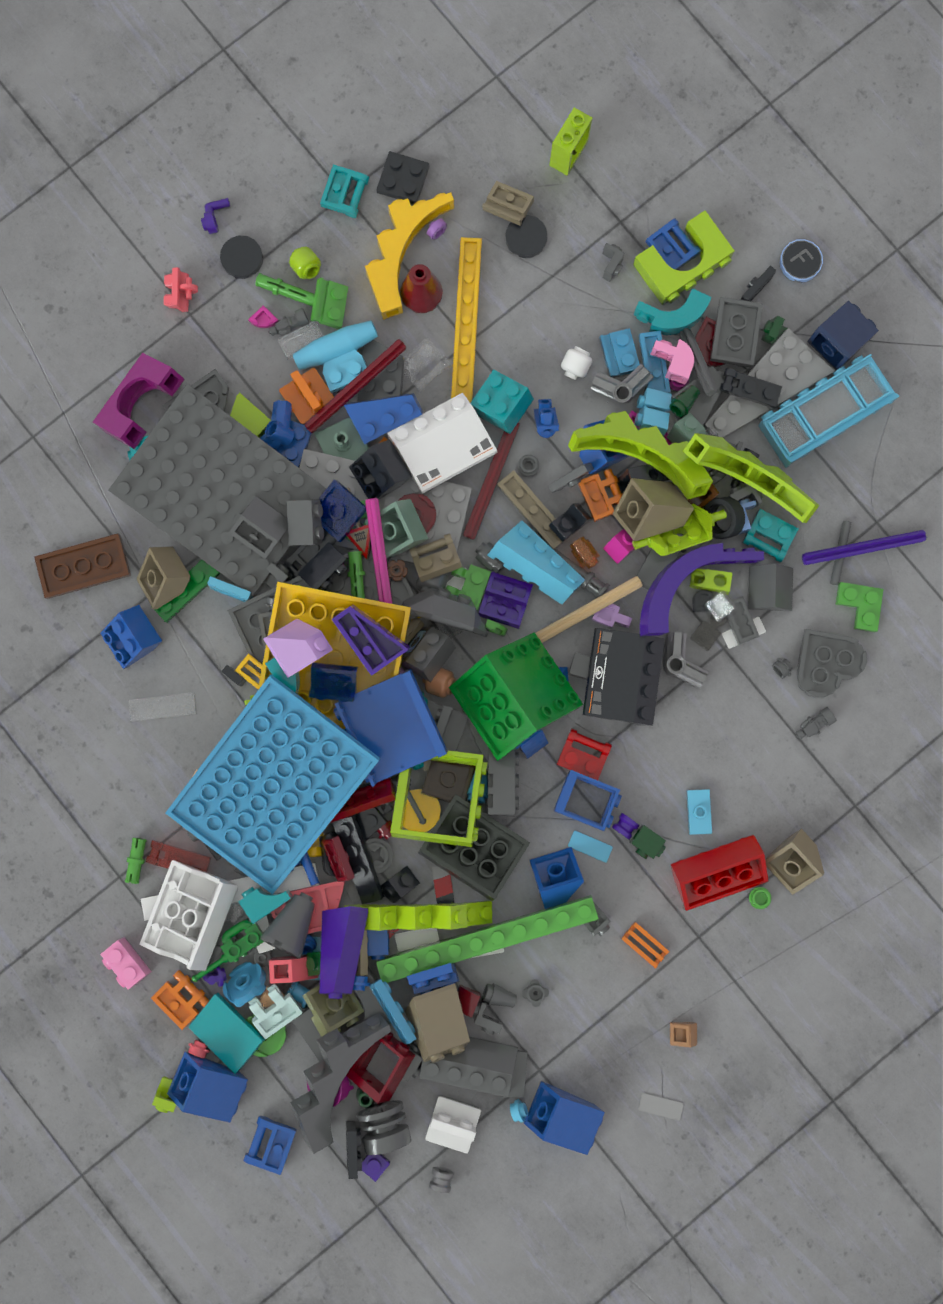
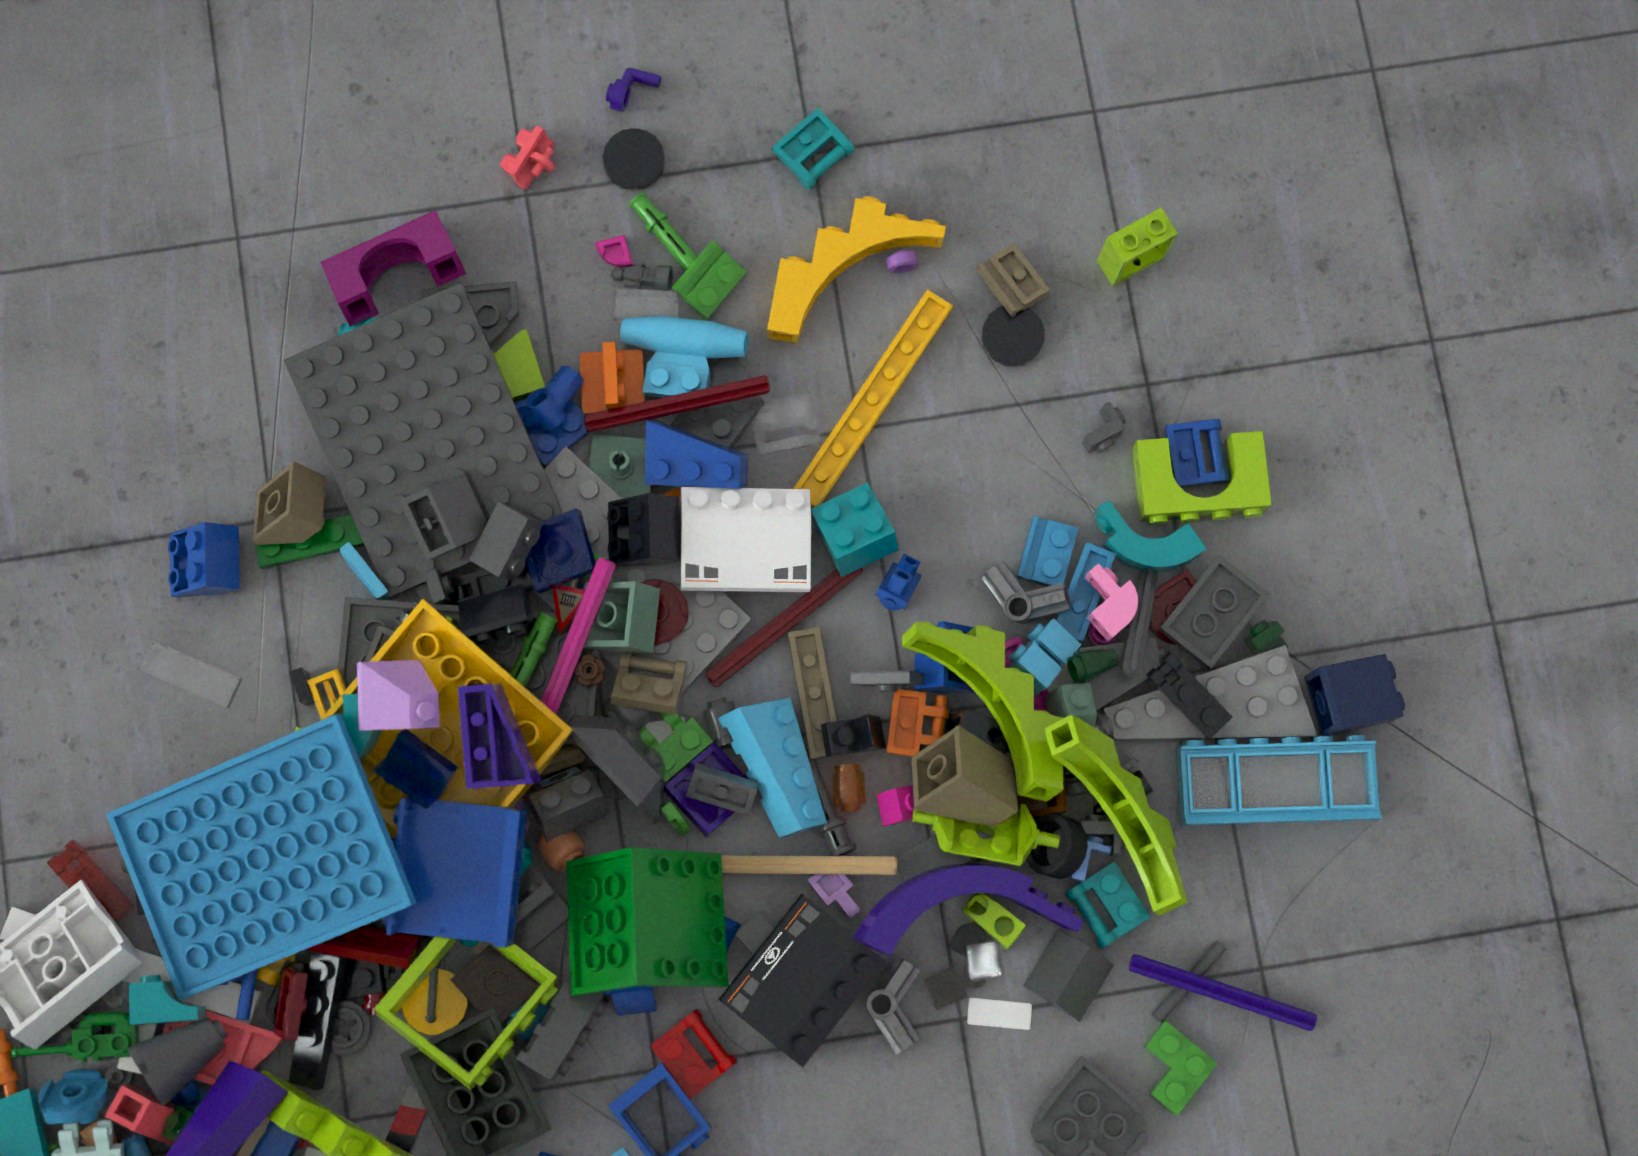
camera: 25 degrees right, 5 degrees down
(82, 566) = (198, 436): reddish brown plate -> none
(135, 860) = (35, 853): bright green pin -> none
(217, 976) = (47, 1066): dark purple plate -> none
(305, 263) = (708, 211): lime head -> none
(399, 884) = (352, 1085): black bracket -> none
(402, 177) = (898, 173): black plate -> none
(421, 289) = (836, 329): dark red cone -> none
(514, 594) = (722, 789): none -> flat silver plate
(528, 459) = (845, 621): dark grey plate -> none
(576, 363) = (982, 534): white head -> none
(742, 622) = (1003, 998): dark grey plate -> none
(758, 284) = (1278, 566): black plate -> none
(782, 668) = (1022, 1091): dark grey plate -> none
(801, 260) = (1355, 566): black tile -> none

